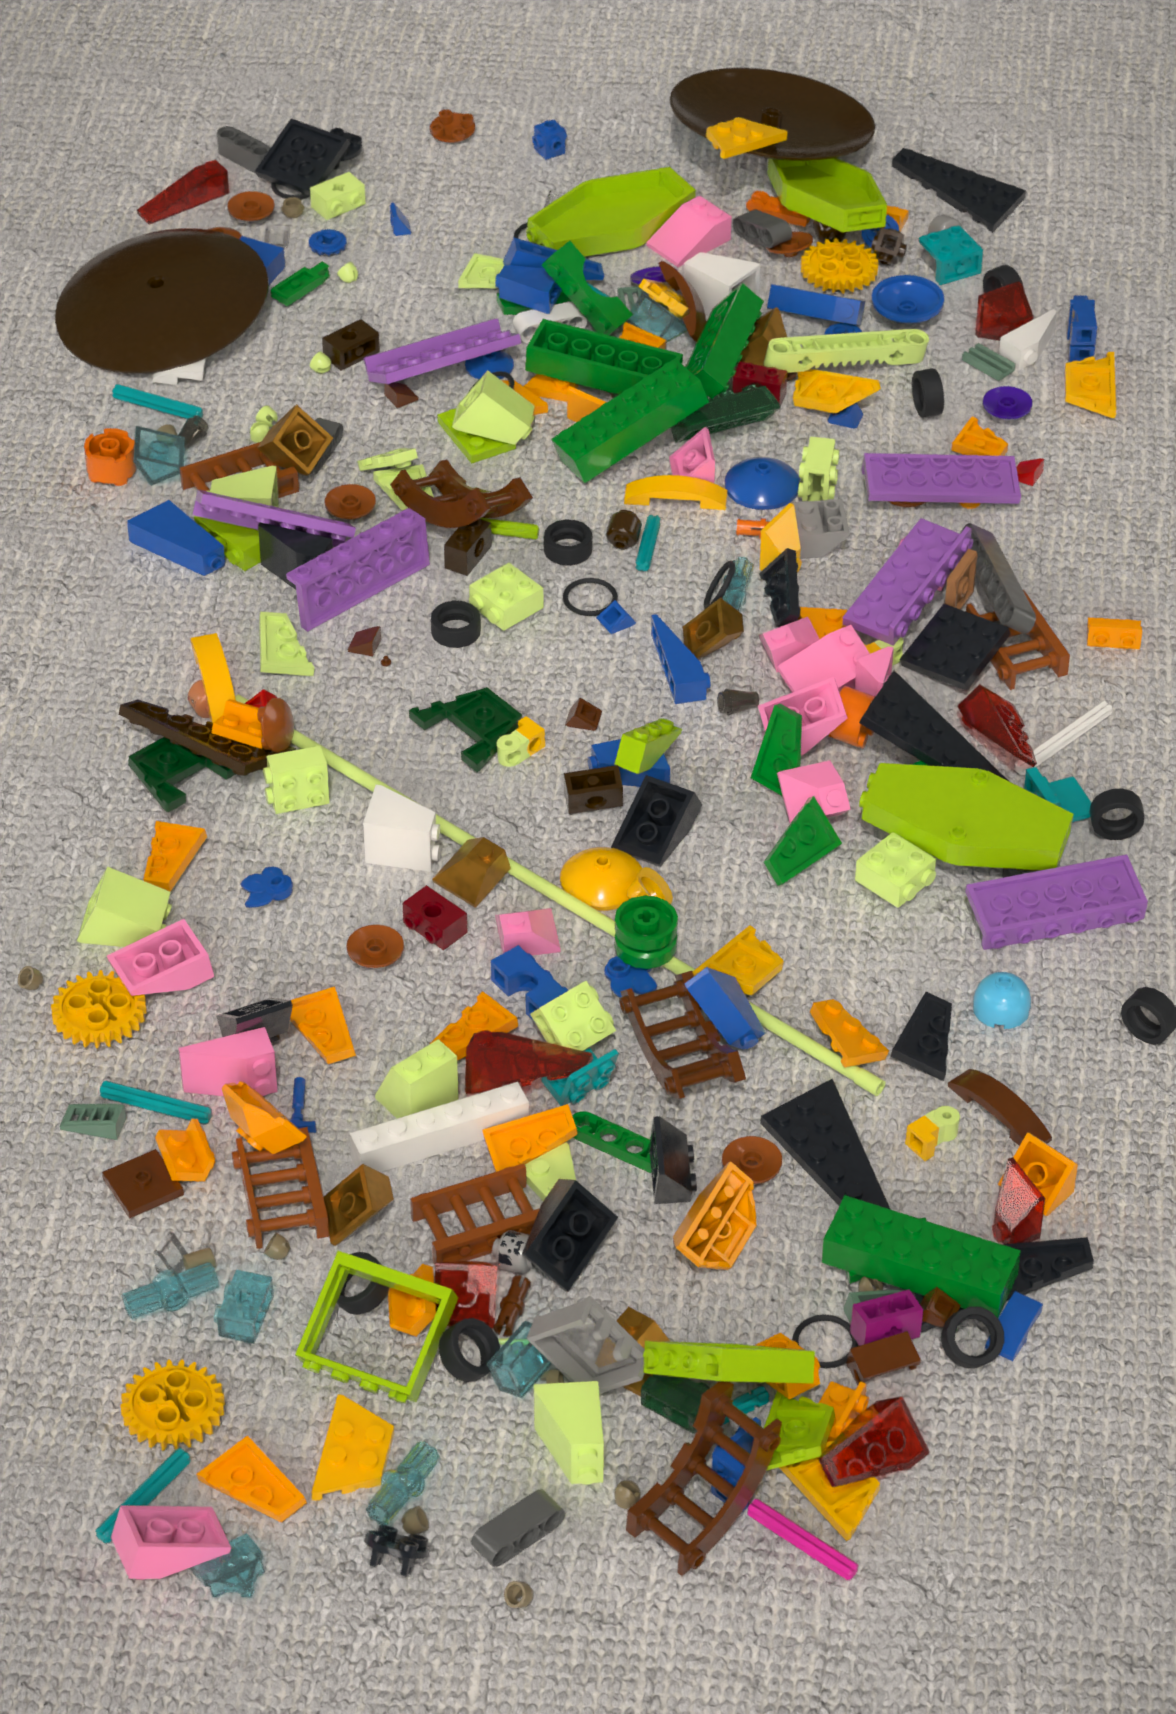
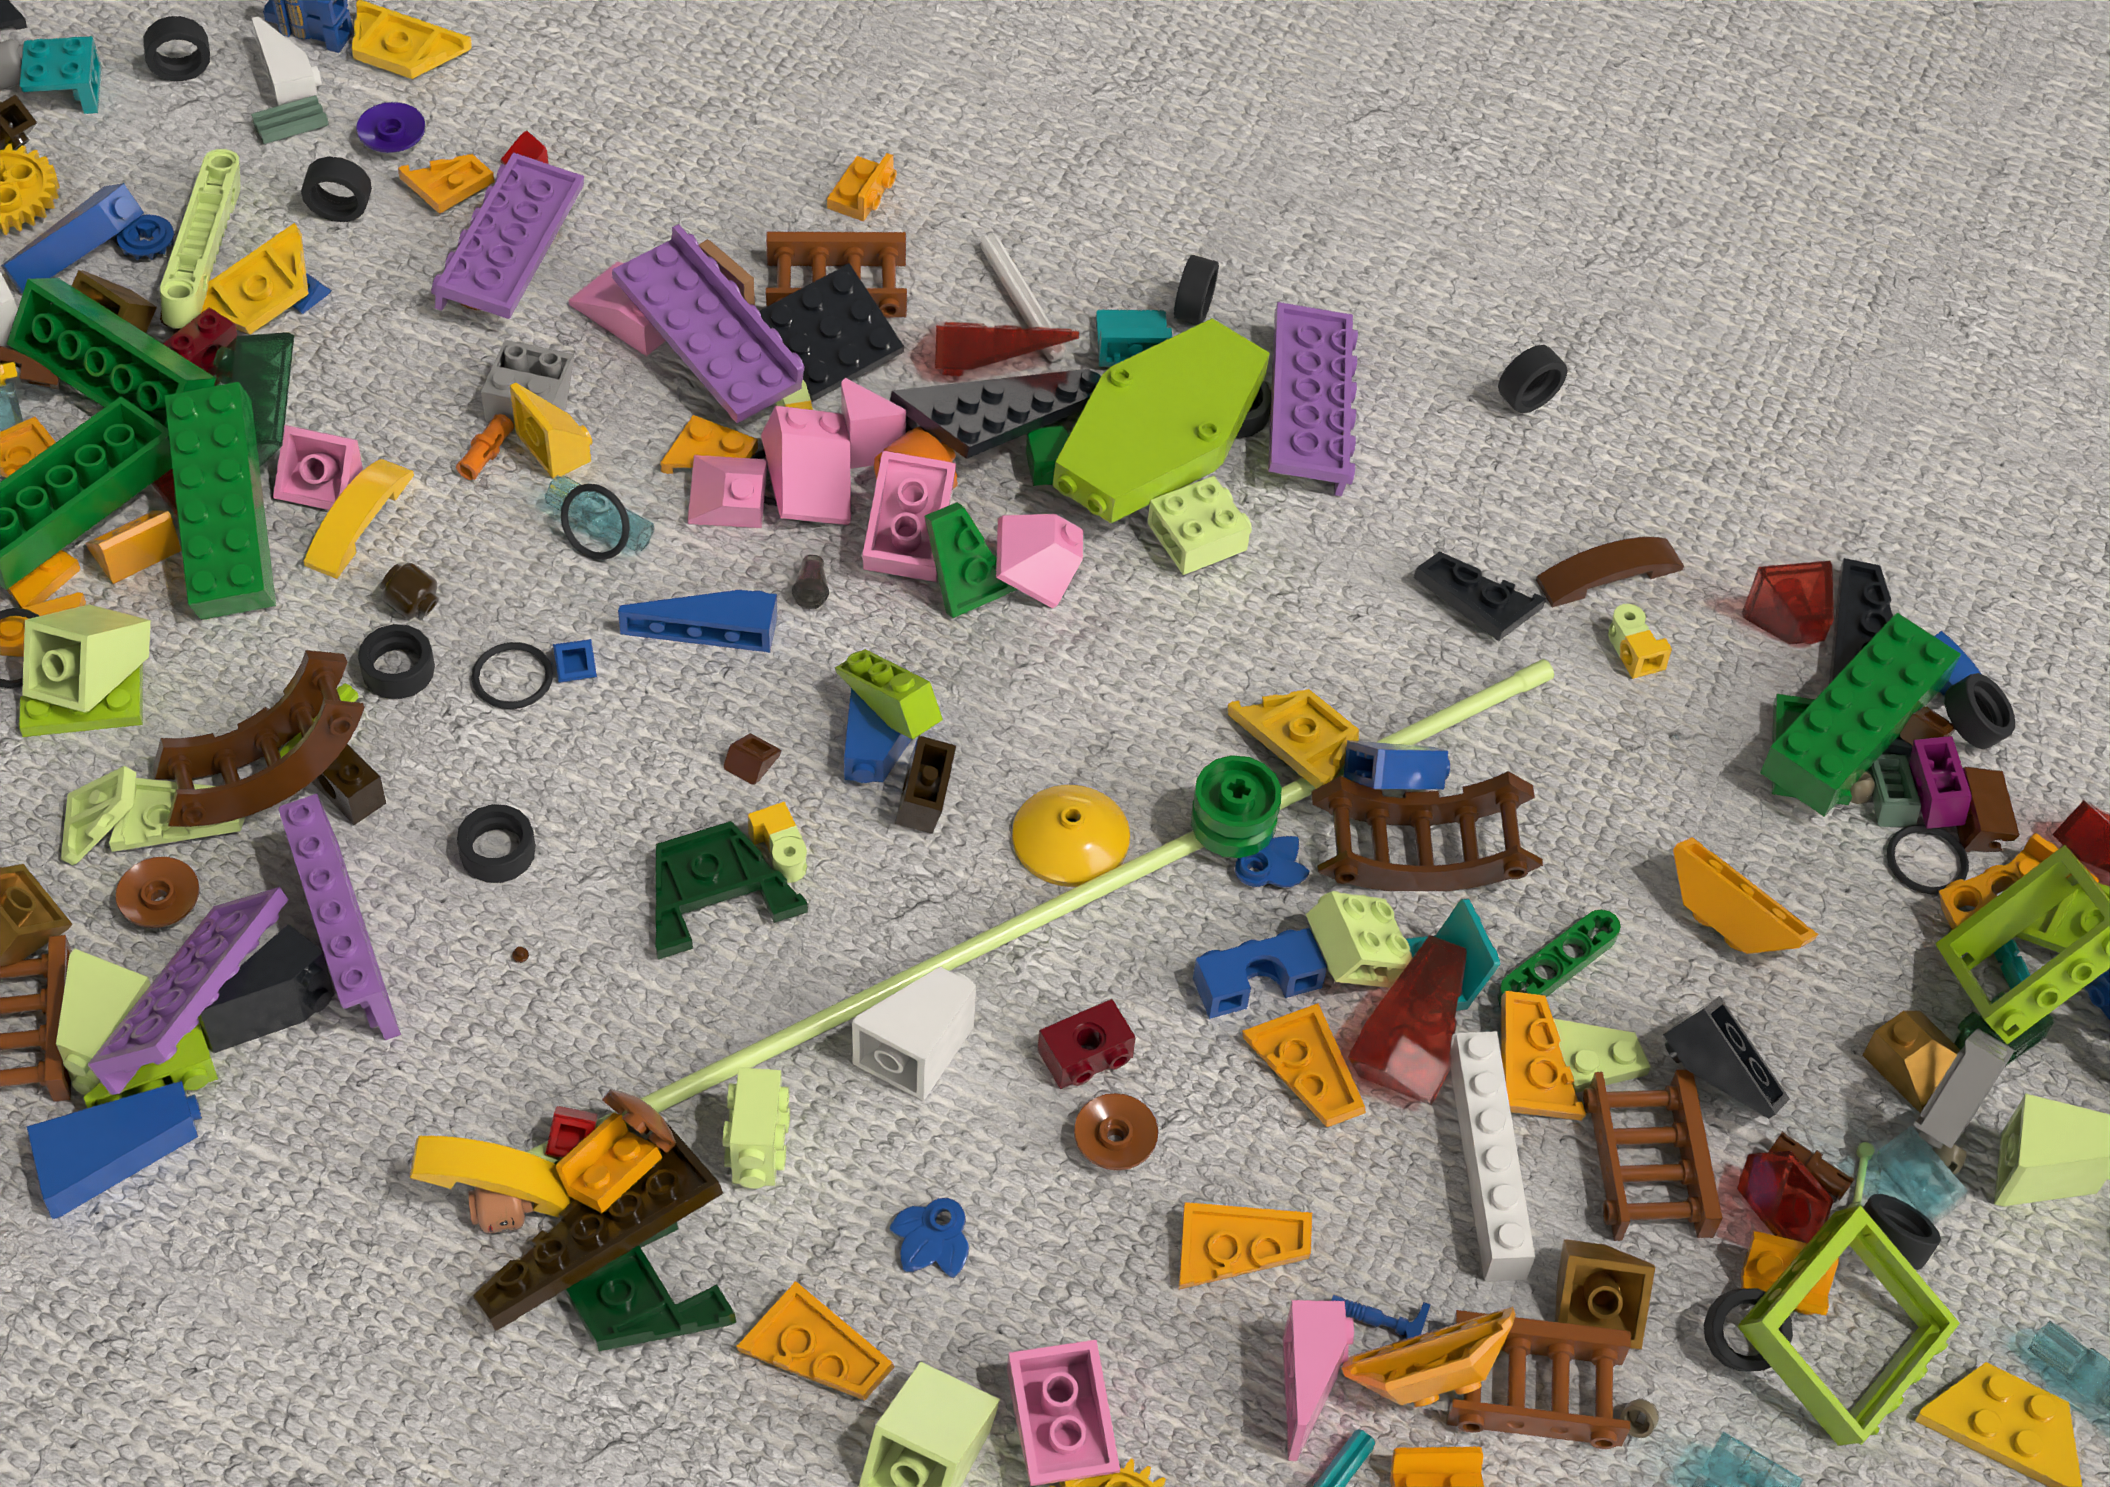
camera: 75 degrees left, 10 degrees up
(269, 1013) = (1248, 1313): black slope -> none
(280, 648) = (431, 1078): yellowish green wing -> none
(366, 641) = (471, 964): reddish brown slope -> none
(420, 1081) = (1415, 1150): yellowish green slope -> none
(474, 870) = (1014, 970): pearl gold slope -> none
(506, 596) = (481, 763): yellowish green brick -> none
(509, 1252) = (1732, 1131): light grey head -> none
(530, 930) = (1140, 949): bright pink slope -> none
(648, 543) = (446, 576): teal axle -> none
(650, 884) = (1141, 794): yellow piece -> none
(657, 821) = (1008, 739): black slope -> none
(670, 1163) = (1656, 913): black slope -> none
(713, 628) = (670, 562): pearl gold slope -> none
(755, 1157) = (1640, 820): dark orange dish -> none
(762, 483) = (388, 418): blue dish -> none
(783, 587) = (627, 459): black wing -> none
(802, 843) = (1115, 600): green wing -> none
(818, 470) = (432, 347): yellowish green brick -> none
(825, 1144) = (1617, 755): black wing -> none
(847, 1034) = (1464, 664): light orange wing -> none
(907, 299) = (131, 143): blue dish -> none
(1000, 582) = (752, 244): dark grey beam -> none
(1002, 311) = (232, 65): clear red slope -> none
(1002, 1000) = (1444, 505): medium azure cylinder -> none
(1048, 1170) = (1730, 564): light orange slope -> none

